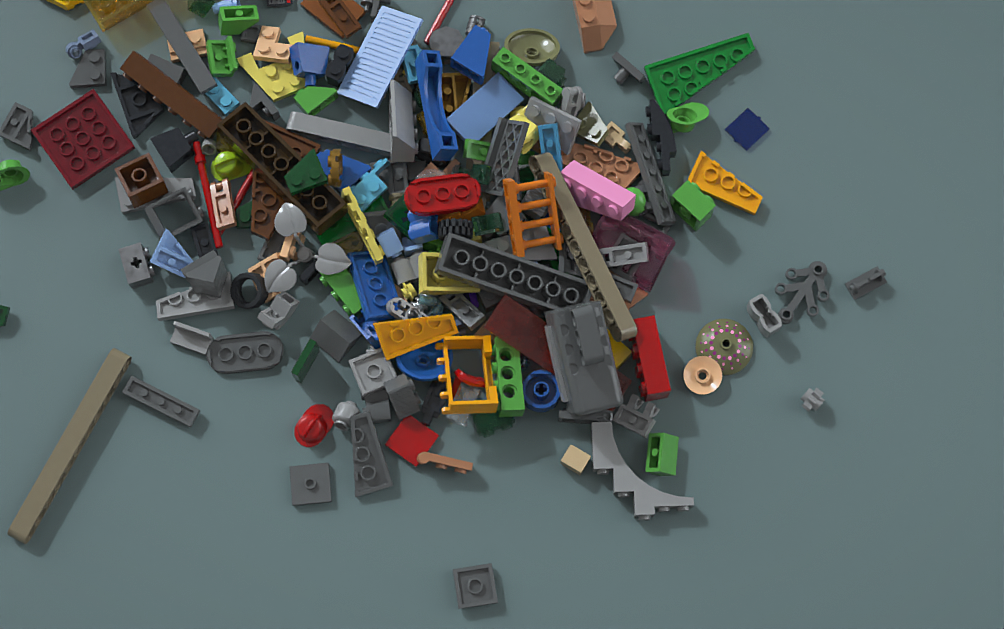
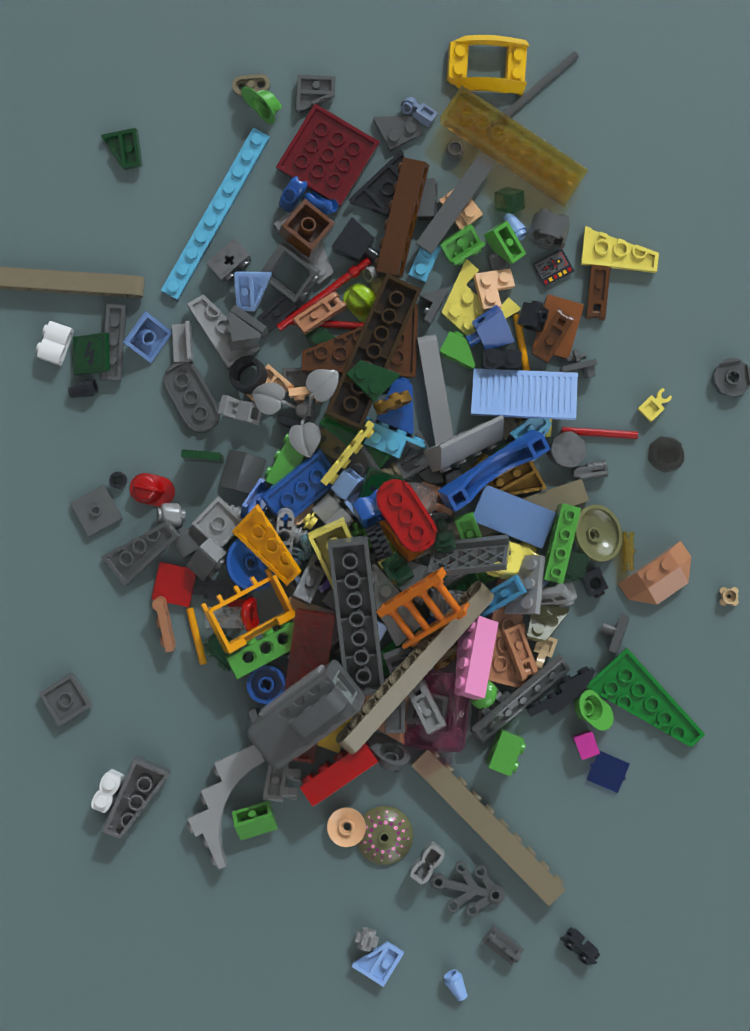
camera: 65 degrees right, 10 degrees up
(87, 261) = (215, 214): none -> medium azure plate
(103, 183) = (292, 194): none -> blue piece
(130, 154) = (324, 205): none -> blue piece
(132, 28) = (455, 149): none -> dark grey plate
(135, 455) = (55, 343): none -> white brick
(161, 425) = (91, 354): none -> dark green tile
(171, 367) = (147, 337): none -> medium blue slope
(191, 447) = (85, 388): none -> black cone
(285, 450) = (118, 474): none -> black bush
(314, 22) = (533, 316): none -> black brick
(468, 440) = (196, 636): none -> light orange bar
(473, 54) = (563, 482): blue slope -> none
(559, 30) = (628, 551): none -> clear yellow pin
(569, 63) = (594, 573): none -> black brick
(575, 459) = (217, 742): tan panel -> none
(582, 584) = (106, 796): none -> white brick
(592, 557) = (136, 791): none -> flat silver wedge
(608, 155) = (519, 651): none -> nougat plate
(654, 305) = (390, 754): none -> dark grey piece
(714, 135) = (586, 744): none -> dark pink panel
(723, 185) = (540, 770): light orange wing -> none
(752, 250) = (492, 830): none -> dark tan brick
(838, 397) = (379, 962): none -> light blue wing
(885, 338) = (455, 984): none -> light blue cone
(901, 213) = (586, 952): none -> black hinge

